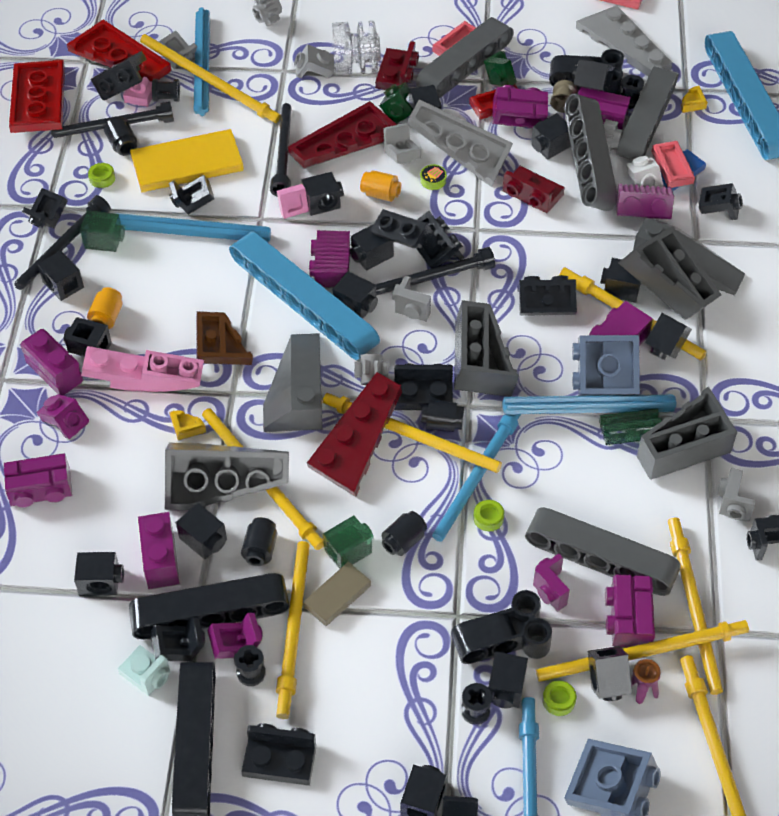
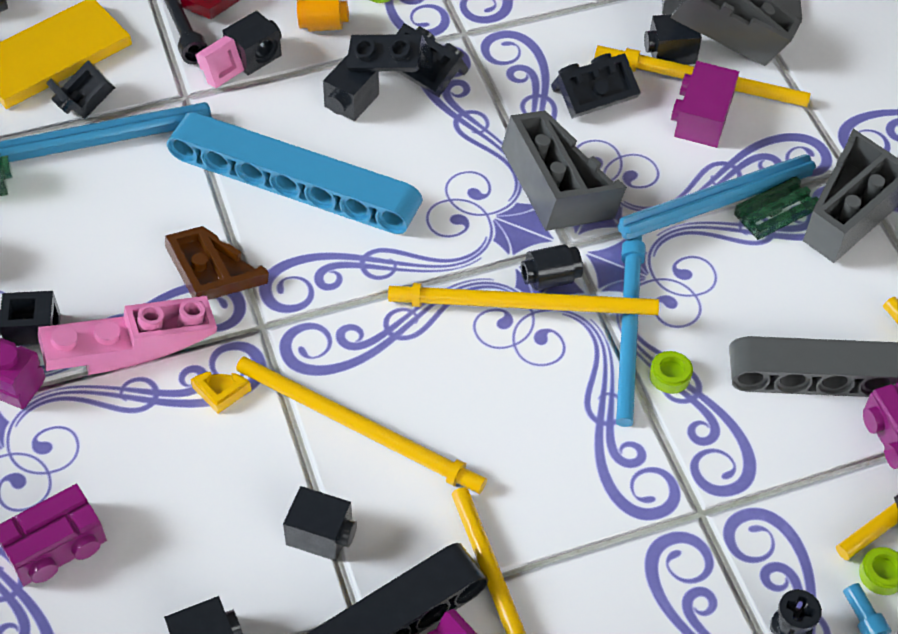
camera: 25 degrees left, 0 degrees up
(64, 414) = (44, 430): magenta bracket -> none
(106, 307) = (33, 267): light orange brick -> none
(158, 550) = (274, 571): magenta brick -> none
(219, 473) = (299, 438): dark grey wedge -> none
(259, 541) = (404, 509): black brick -> none
(296, 392) = (347, 293): dark grey wedge -> none
(331, 257) = (307, 116): magenta brick -> none
(337, 593) = (538, 542): dark tan tile -> none
(348, 542) = (520, 469): clear green brick -> none
(351, 443) = (456, 340): dark red wing -> none
(356, 294) = (364, 148): black brick -> none
(369, 366) = (433, 238): light grey gear -> none
(403, 533) = (584, 431): black brick -> none
(411, 303) = (436, 141): light grey bracket -> none
(423, 384) = (502, 238): black bracket -> none
(482, 260) = (494, 65): black piece -> none
(504, 631) = (779, 510): black piece -> none
(507, 680) = (818, 568): black brick -> none
(549, 585) = (797, 431): magenta bracket -> none
(606, 365) = (718, 142): sand blue plate -> none
(667, 337) = (765, 88): black brick -> none

